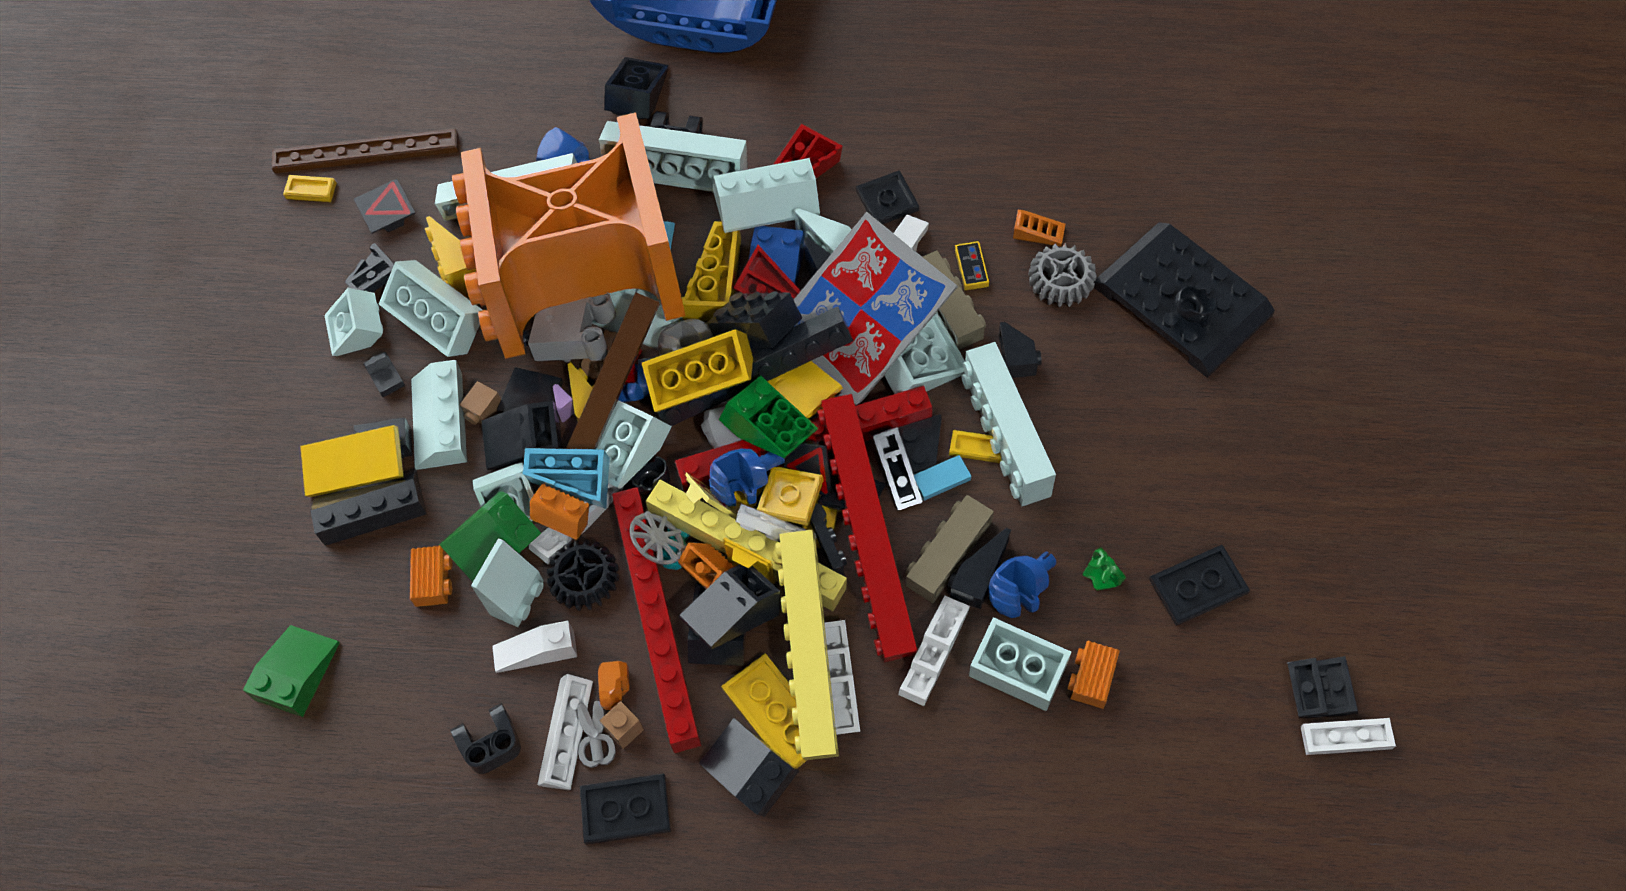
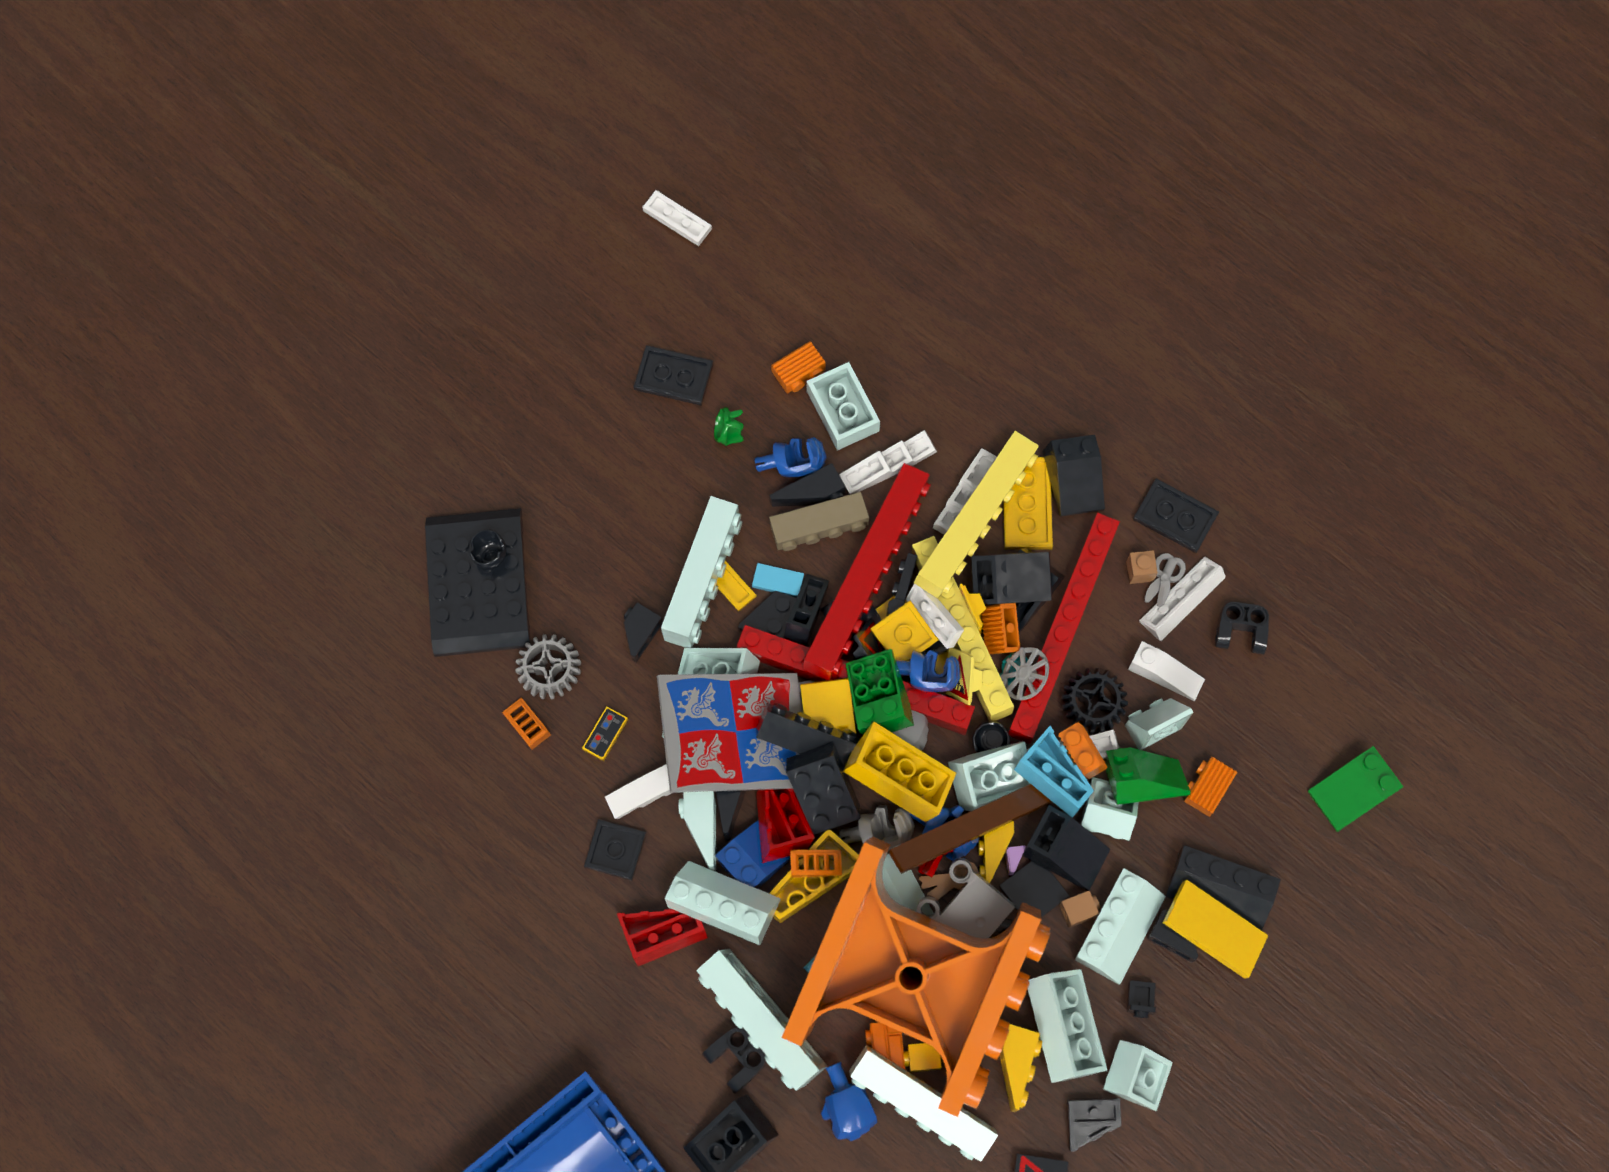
camera: 145 degrees left, 10 degrees up
(613, 683) = (1127, 602): orange rock -> none
(719, 258) = (796, 873): none -> orange slope
(958, 310) = (646, 726): dark tan brick -> none
(1322, 687) = (661, 257): black slope -> none

